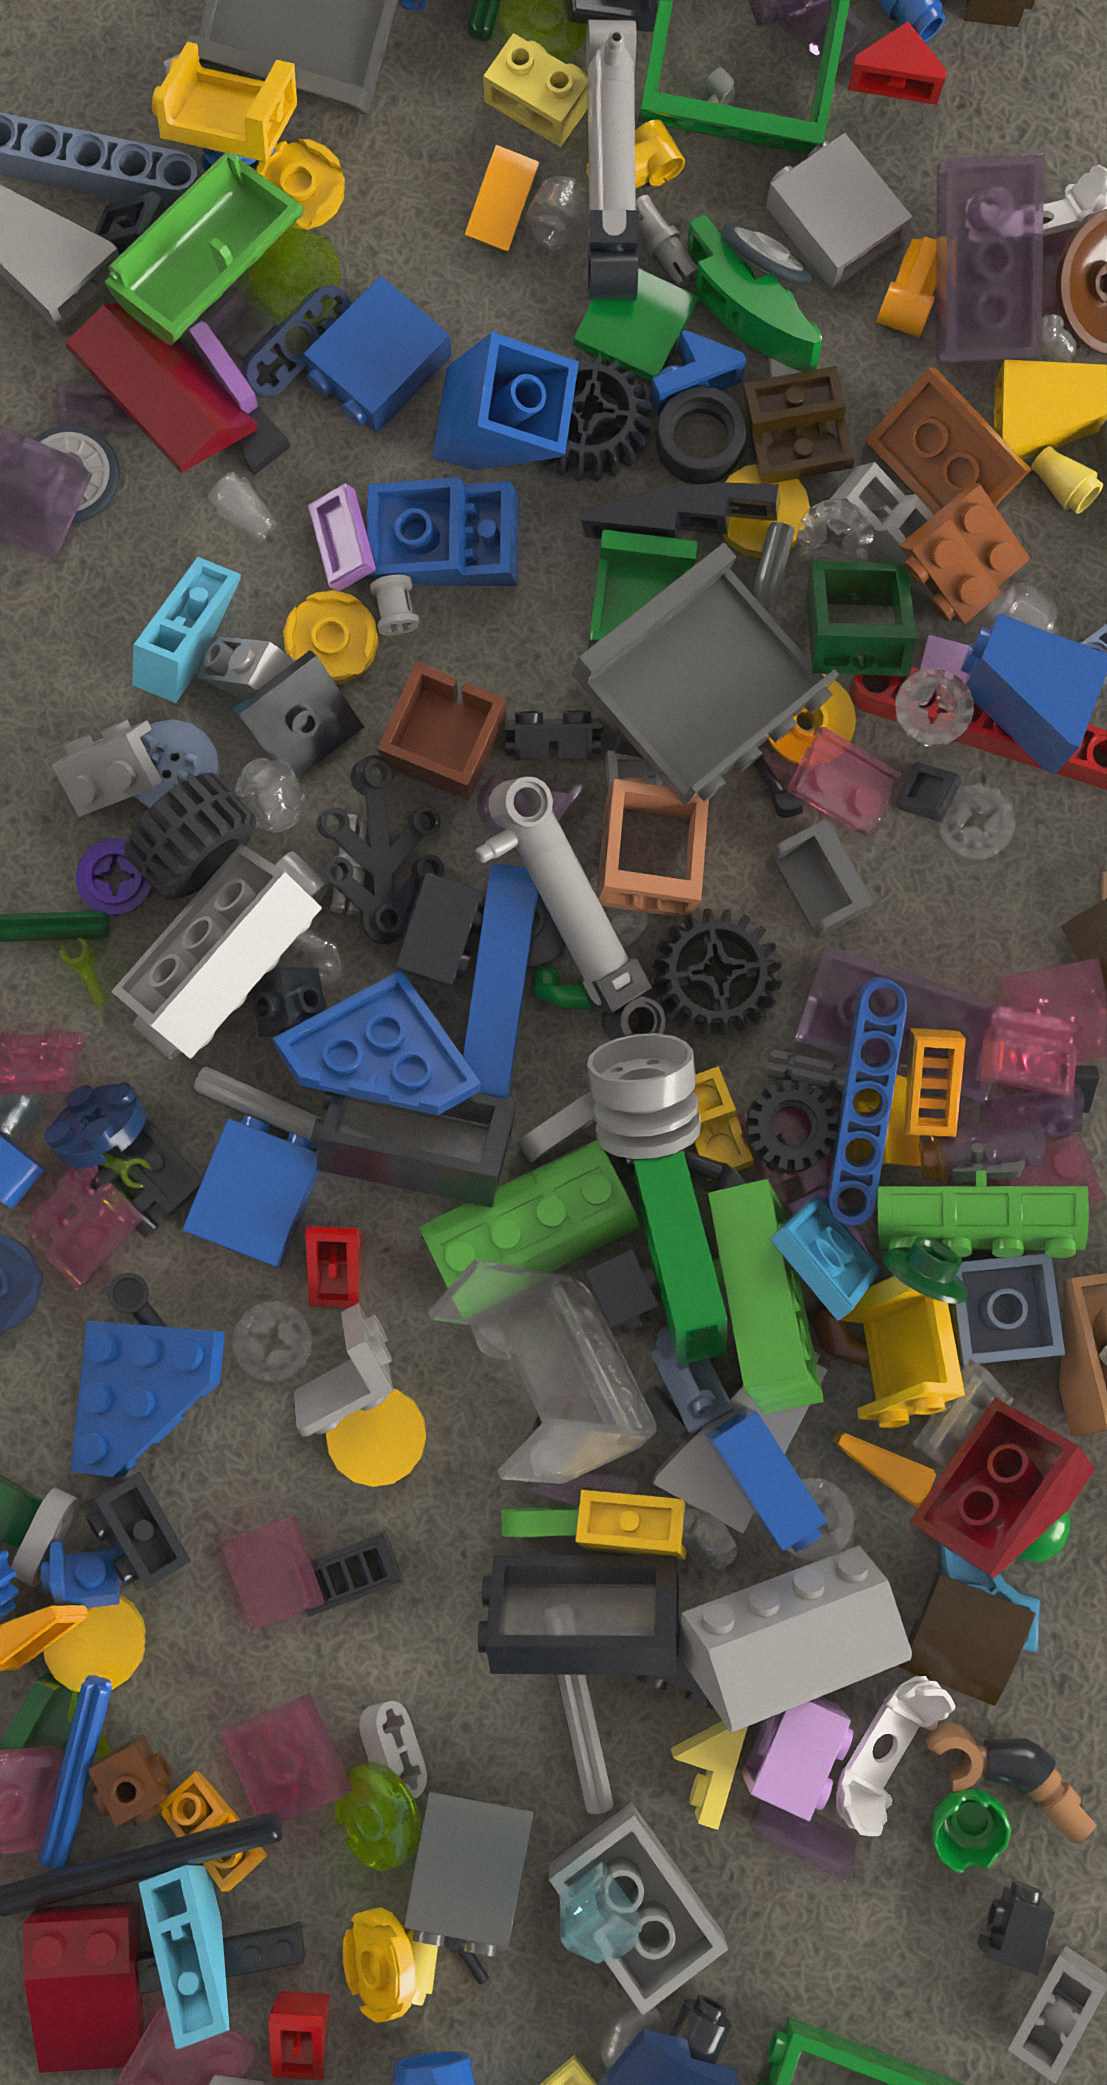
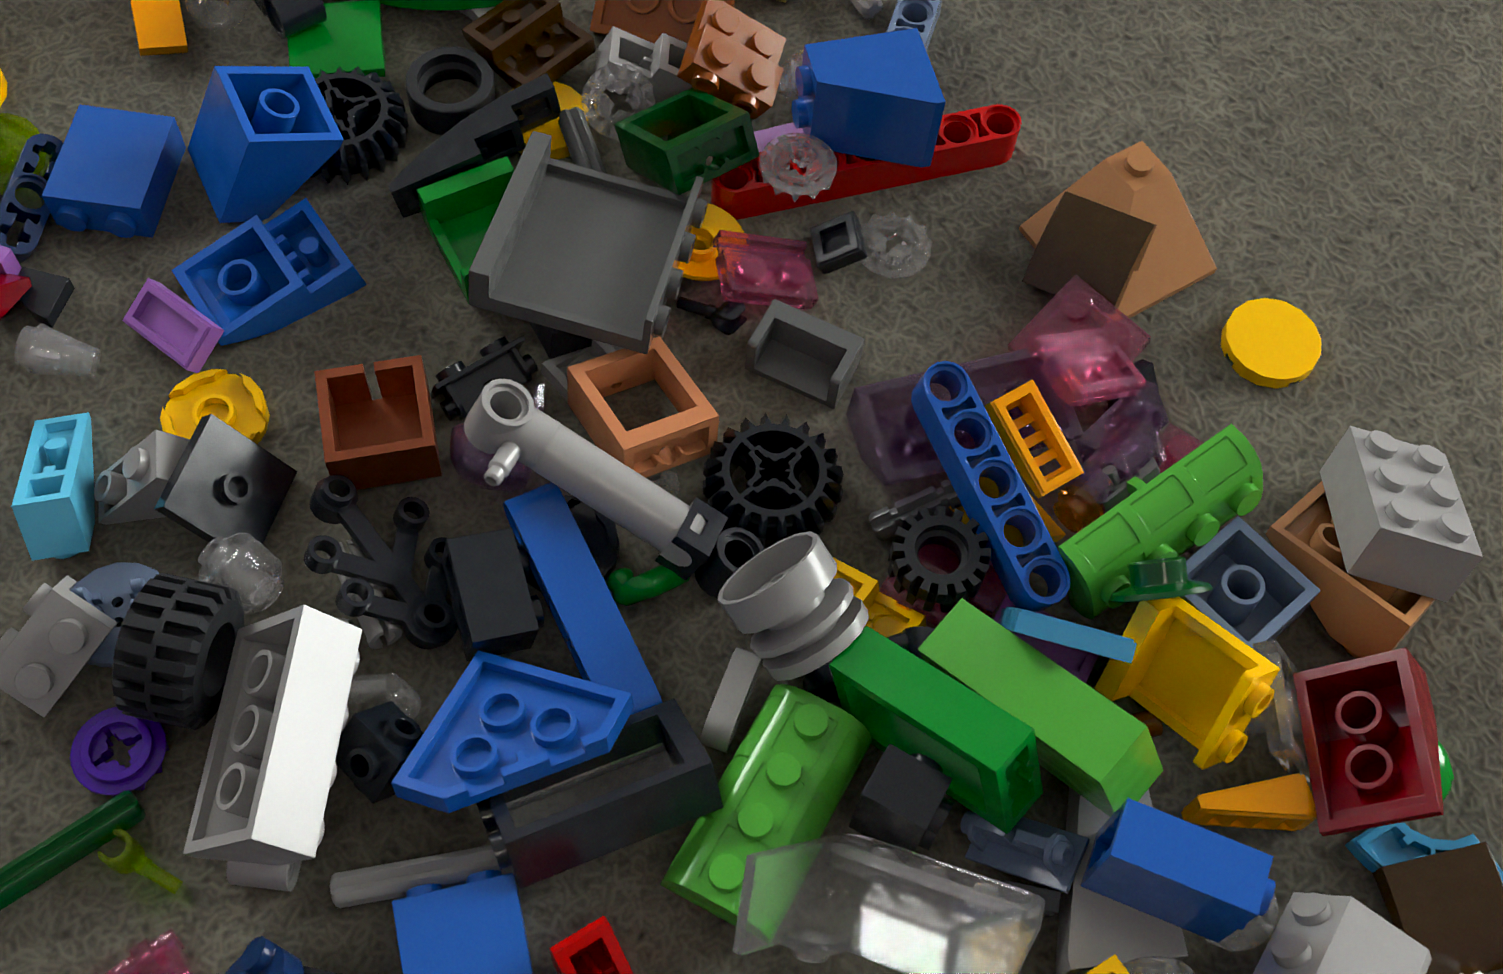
camera: 40 degrees left, 20 degrees down
(394, 604) = (260, 353): light grey bush -> none
(704, 364) = (409, 38): blue slope -> none

